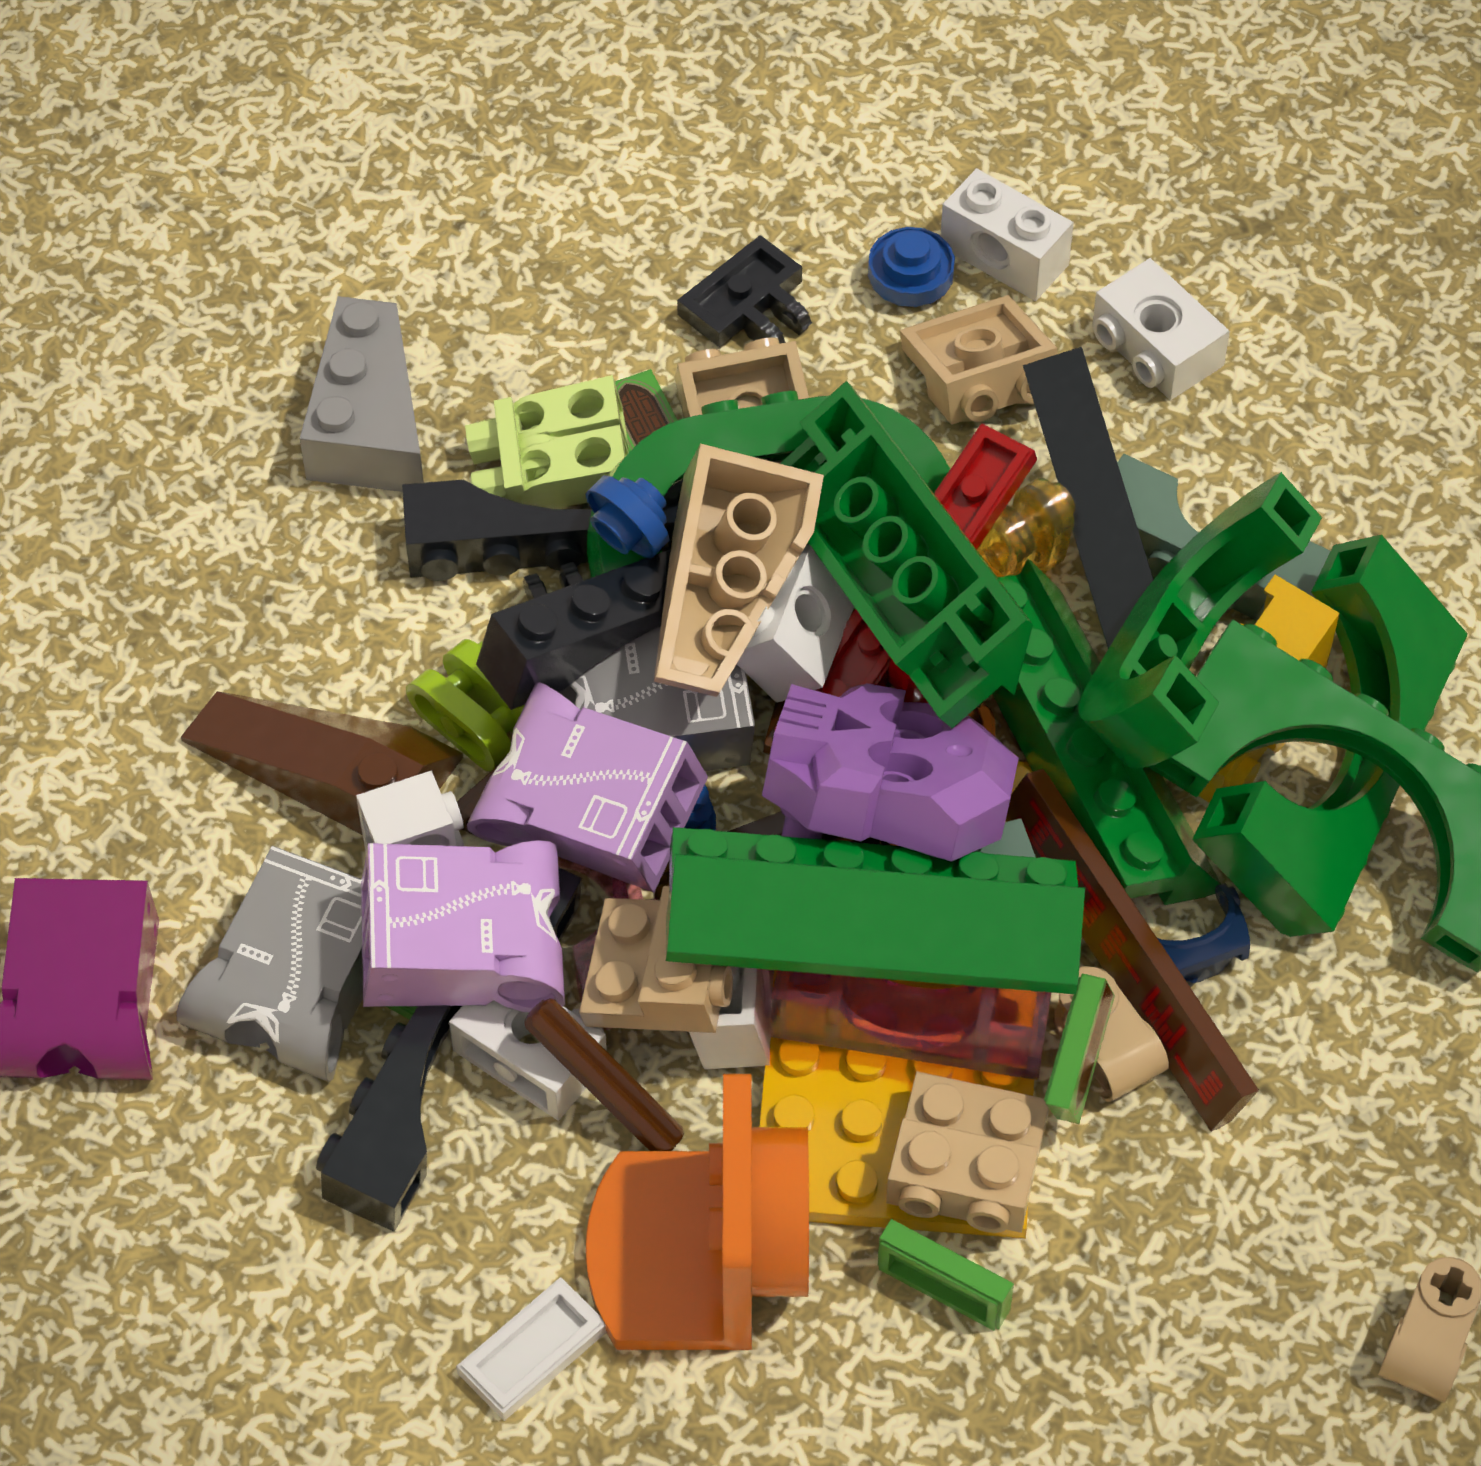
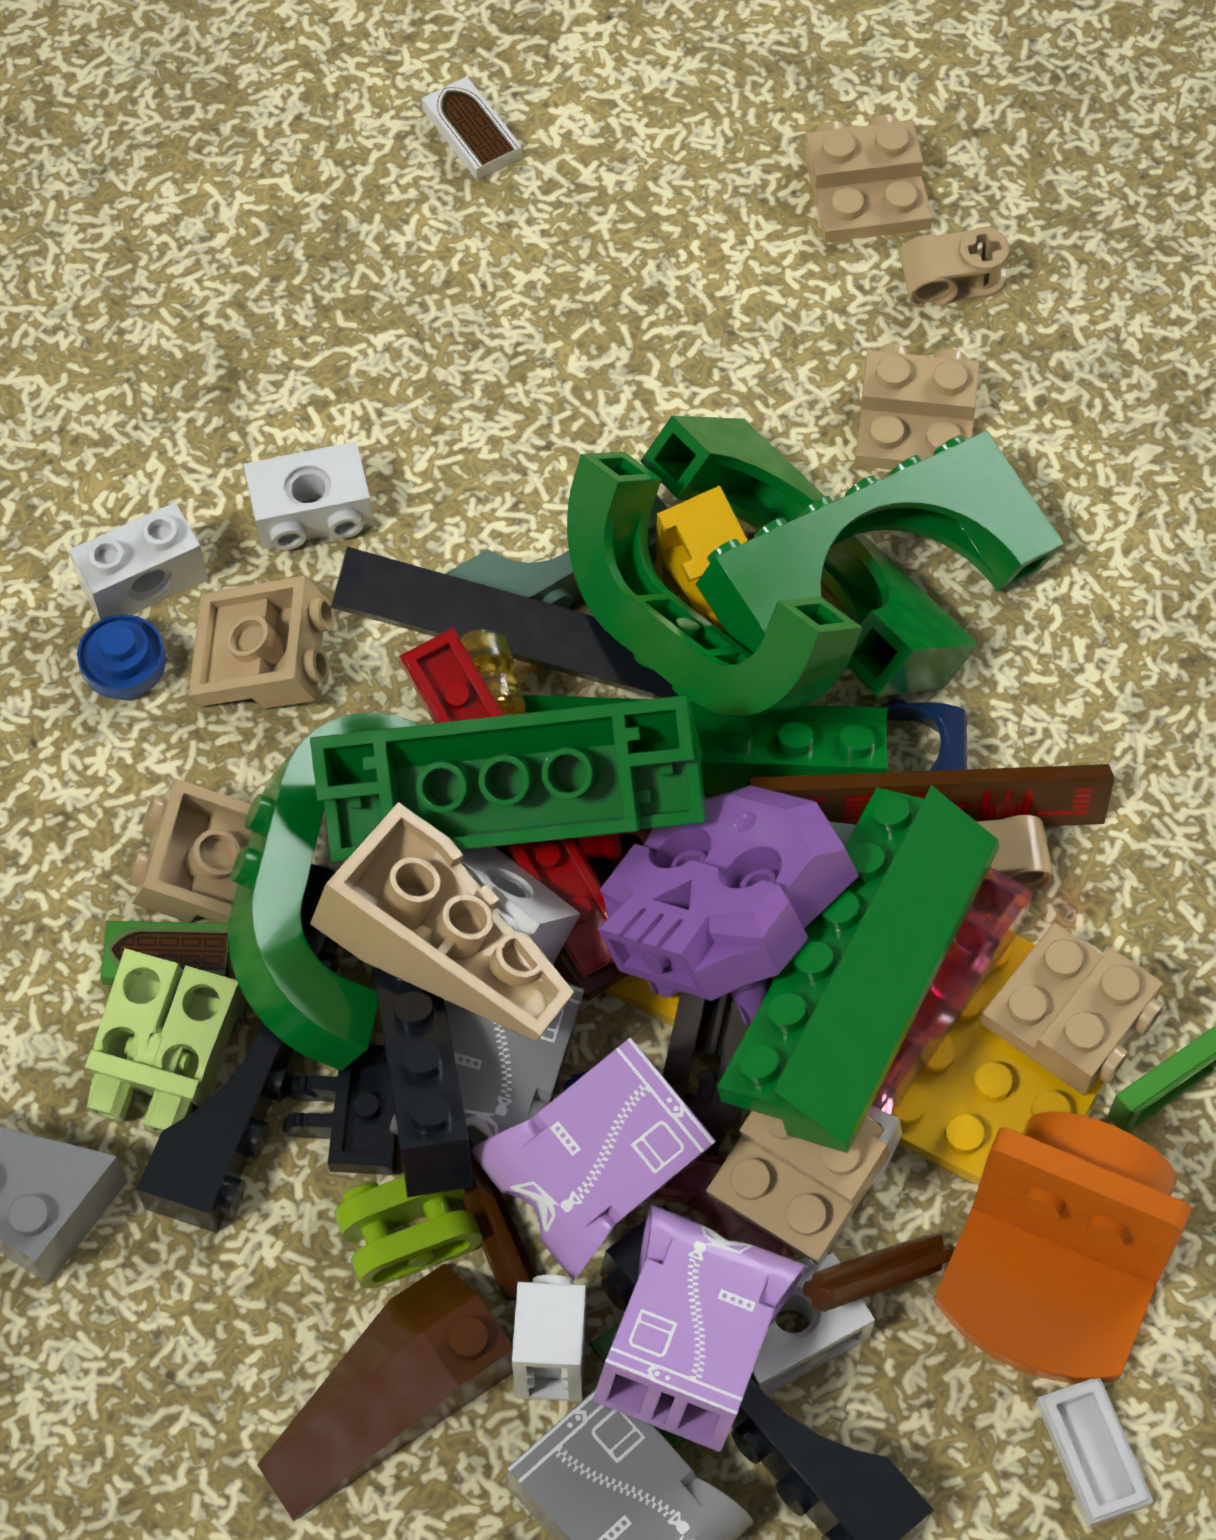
camera: 65 degrees left, 5 degrees up
(629, 515) = (340, 986): blue plate -> none
(743, 290) = (65, 809): black hinge -> none
(1079, 1048) = (1051, 894): bright green tile -> none

